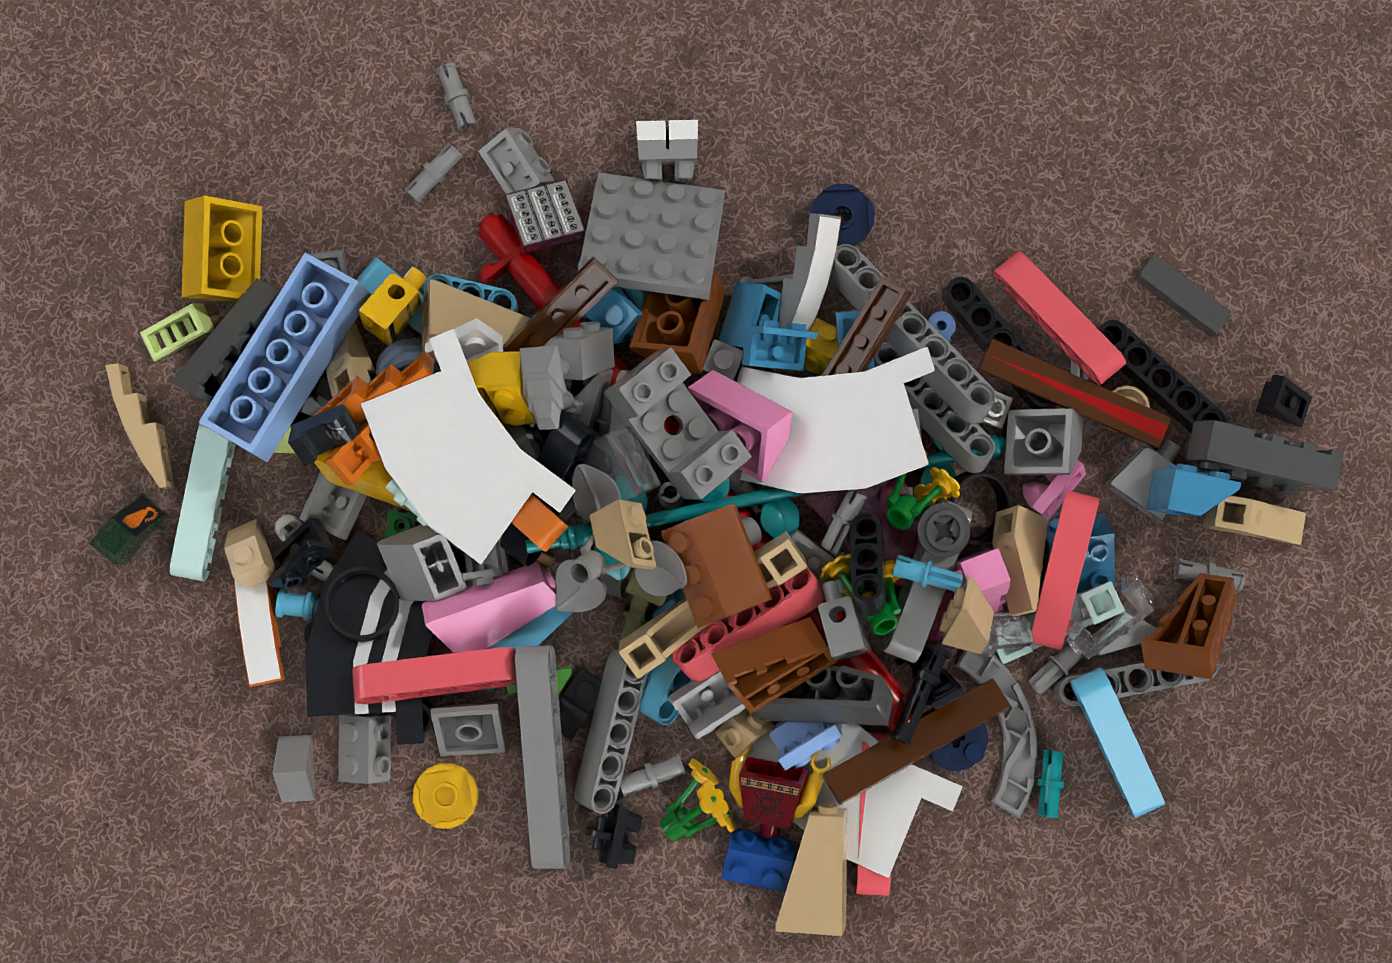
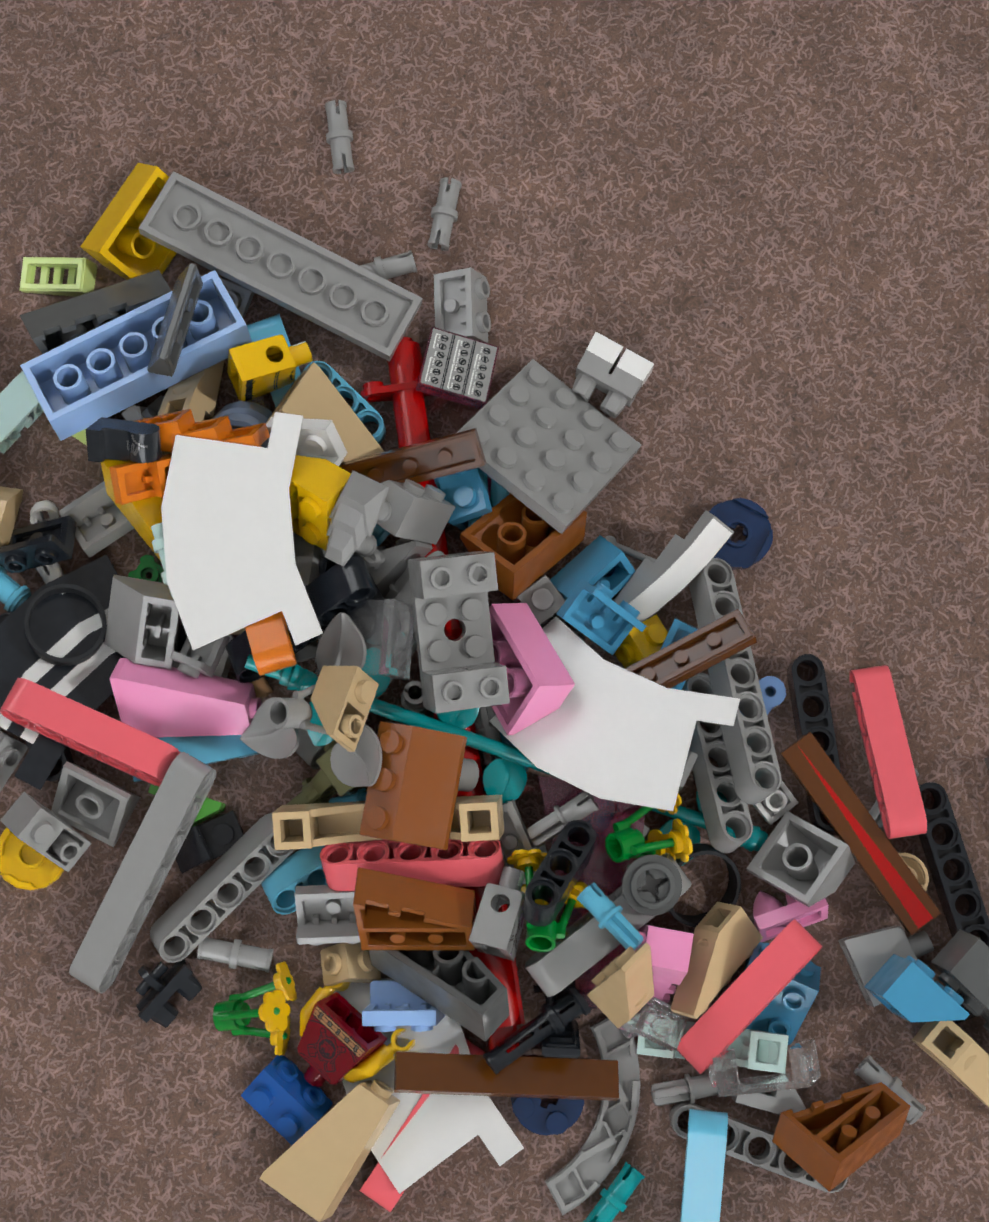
camera: 30 degrees right, 5 degrees down
(301, 313) = (176, 322): none -> dark grey slope
(333, 83) = (339, 136): none -> light grey pin
(353, 217) = (280, 266): none -> light grey plate
(447, 772) = (45, 832): none -> light grey slope

